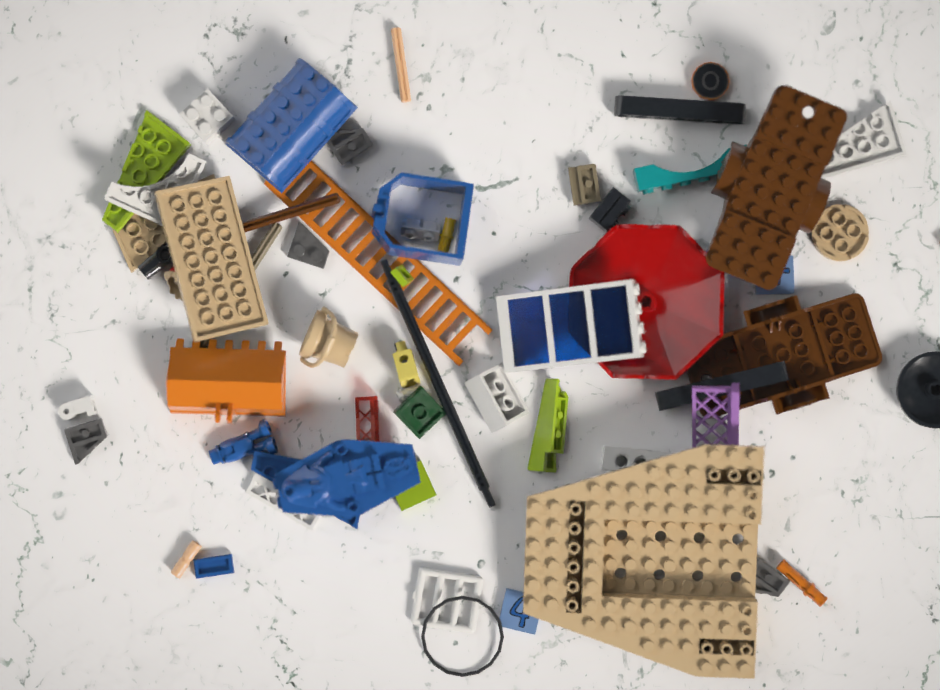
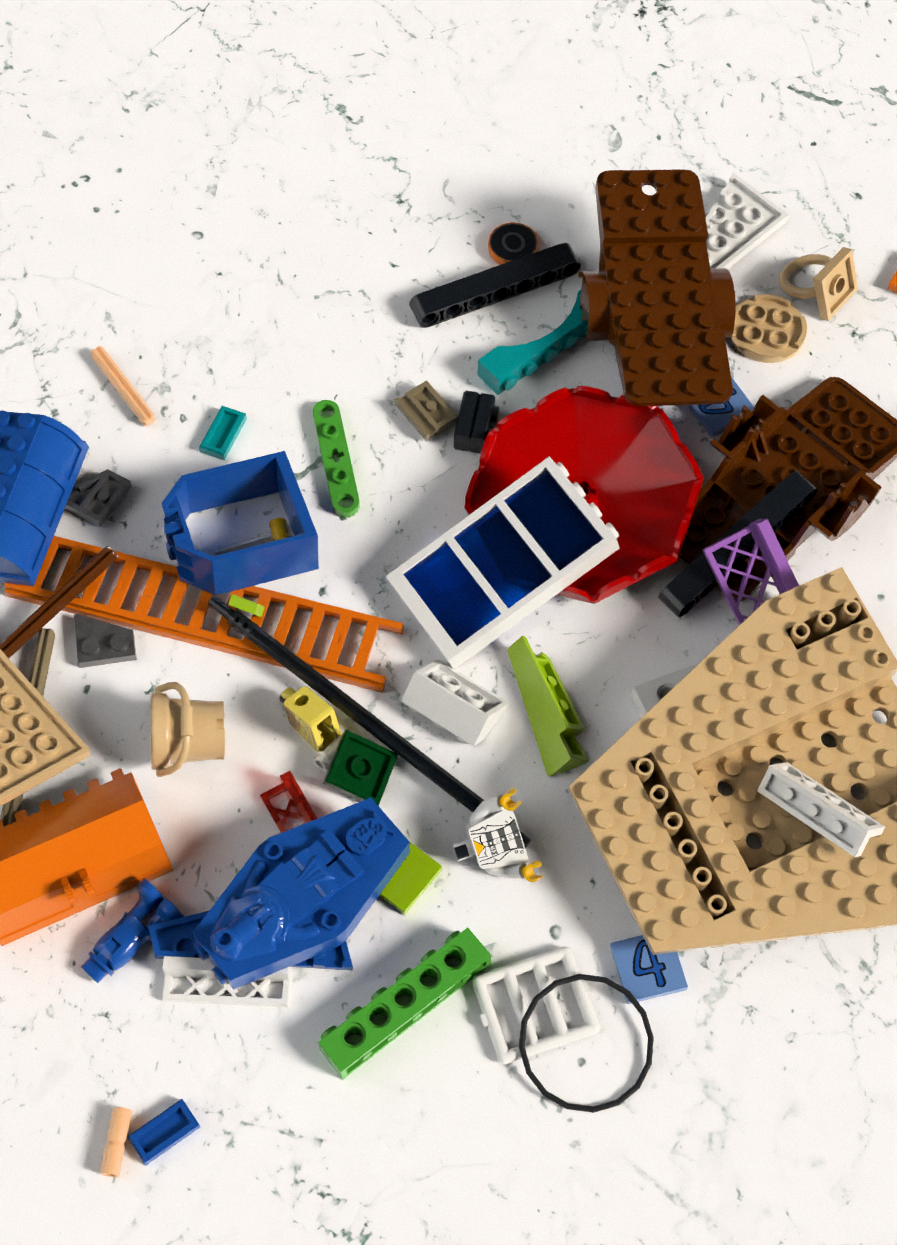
camera: 20 degrees left, 25 degrees down
(328, 578) = (347, 1057): none -> bright green brick
(448, 133) = (223, 433): none -> teal tile
(473, 501) = (497, 840): none -> torso
(507, 202) = (338, 474): none -> bright green piece
(659, 582) = (819, 808): none -> white fence
(899, 227) = (832, 285): none -> tan tile

